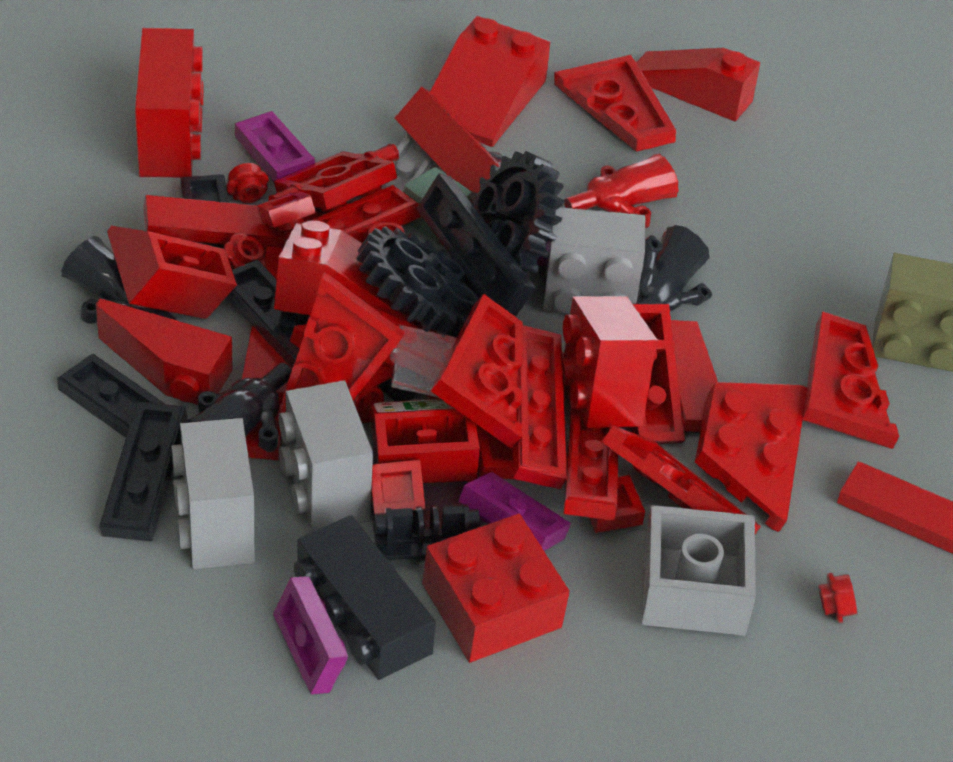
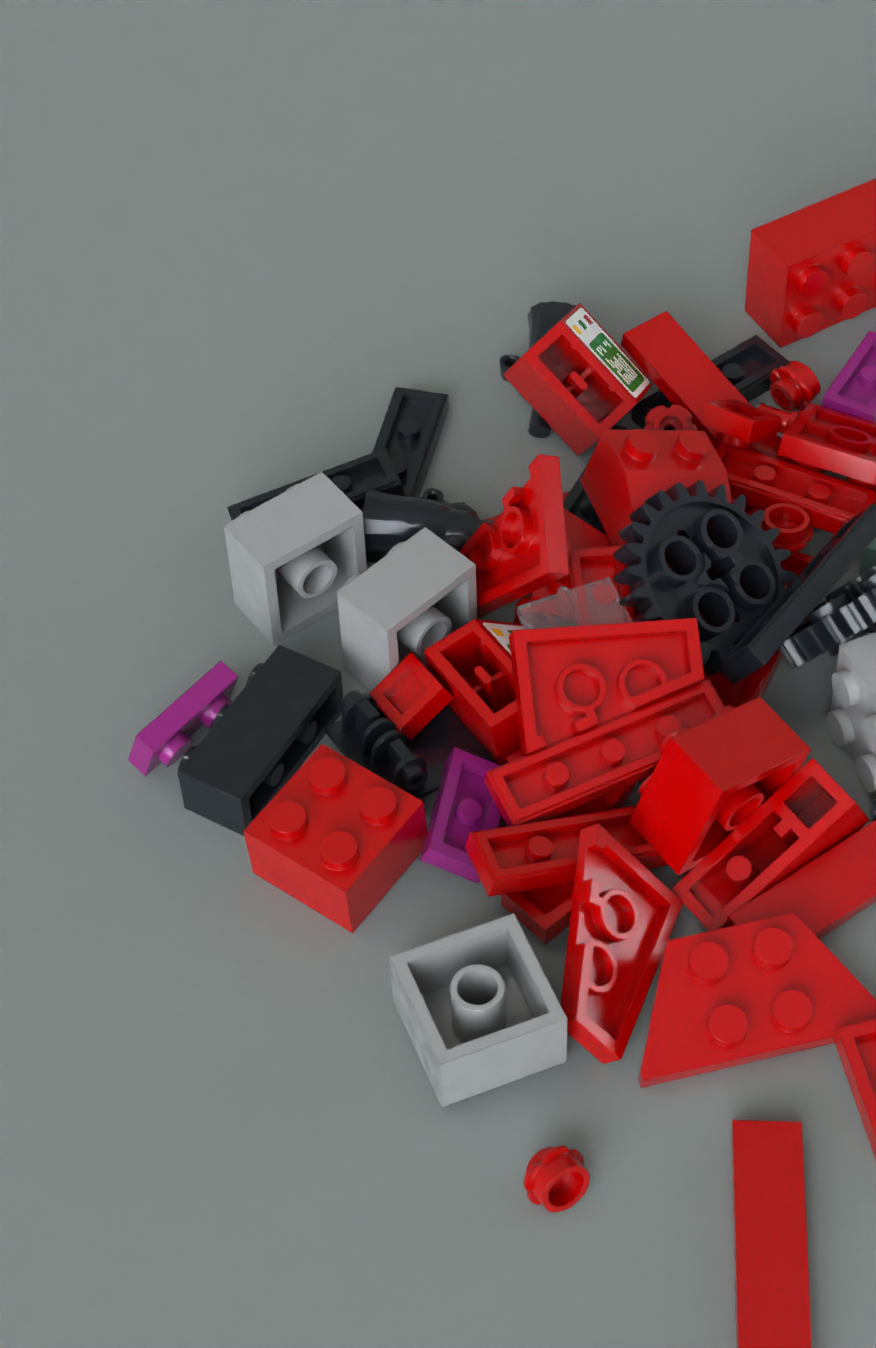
camera: 70 degrees right, 5 degrees up
(167, 352) = (482, 445): red slope -> none

